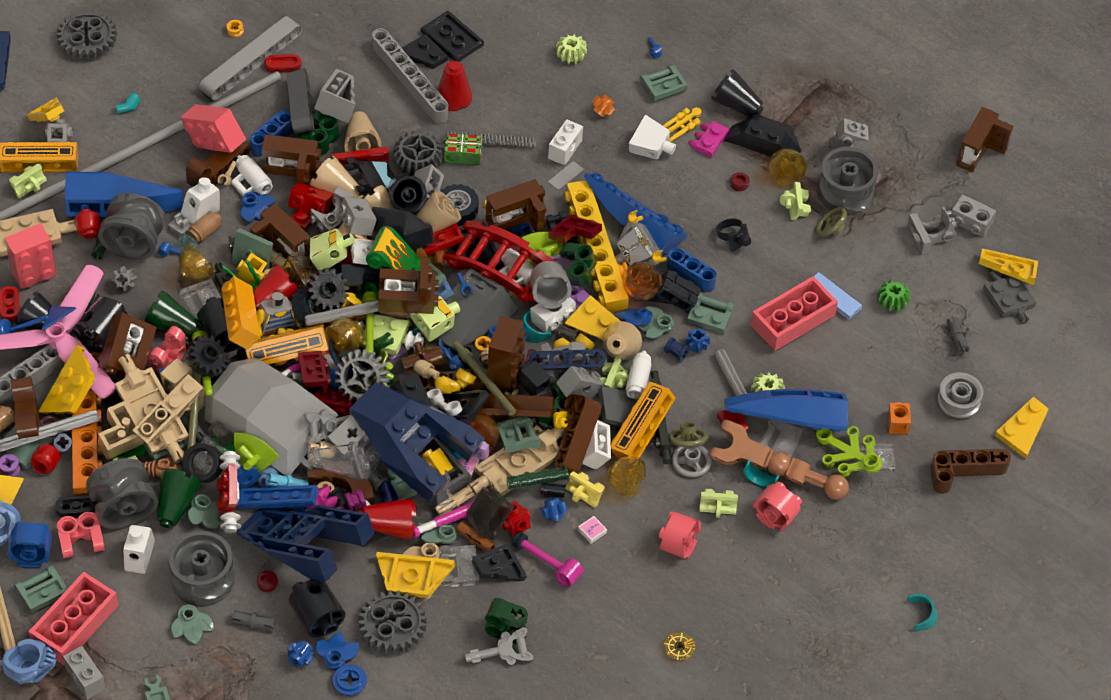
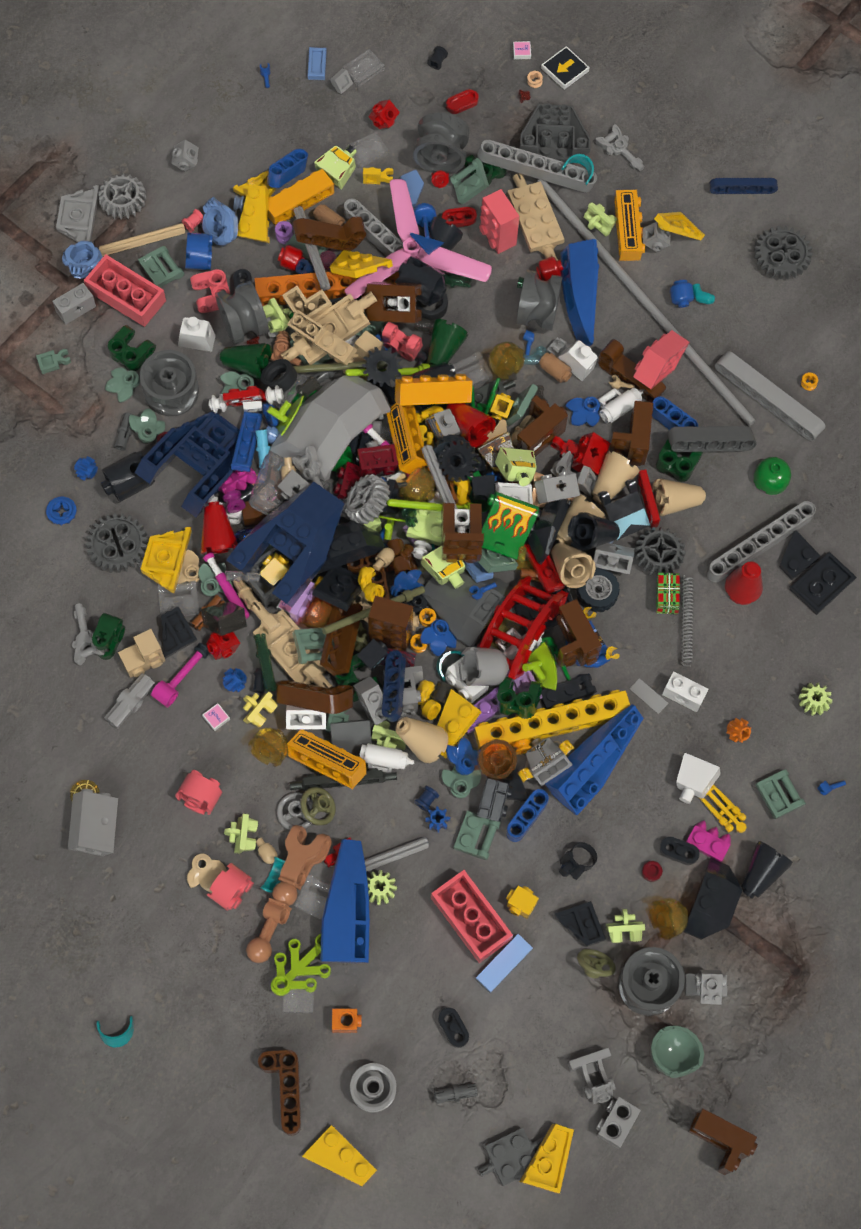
camera: 90 degrees right, 15 degrees up
(121, 282) = (489, 304): light grey gear -> none
(127, 117) = (681, 293): none -> blue head
(153, 619) = (140, 354): none -> dark green piece
(249, 597) = (146, 423): none -> sand green plate
(283, 63) = (769, 426): red tile -> none
(336, 649) = (95, 499): blue plate -> none
(337, 96) = (718, 469): light grey wedge -> none
(339, 58) = (772, 475): none -> green cylinder
(437, 401) = (350, 570): white bar -> none
(525, 588) = (142, 655): none -> tan brick
(559, 418) = (326, 678): yellow arm -> none
(573, 226) = (564, 693): dark red plate -> none
(576, 605) = (129, 701): none -> light grey piece
(715, 629) = (93, 823): none -> light grey piece
(718, 161) = (679, 849): none -> black plate
(735, 483) = (266, 851): none -> tan cylinder
(758, 536) = (206, 875): none -> tan plate
(776, 277) = (521, 901): none -> yellow brick
(793, 233) = (582, 923): none -> black wing
(893, 295) = (510, 1029): bright green gear -> none
(896, 334) = (453, 1028): none -> black plate
(909, 166) = (676, 1051): none -> sand green cylinder

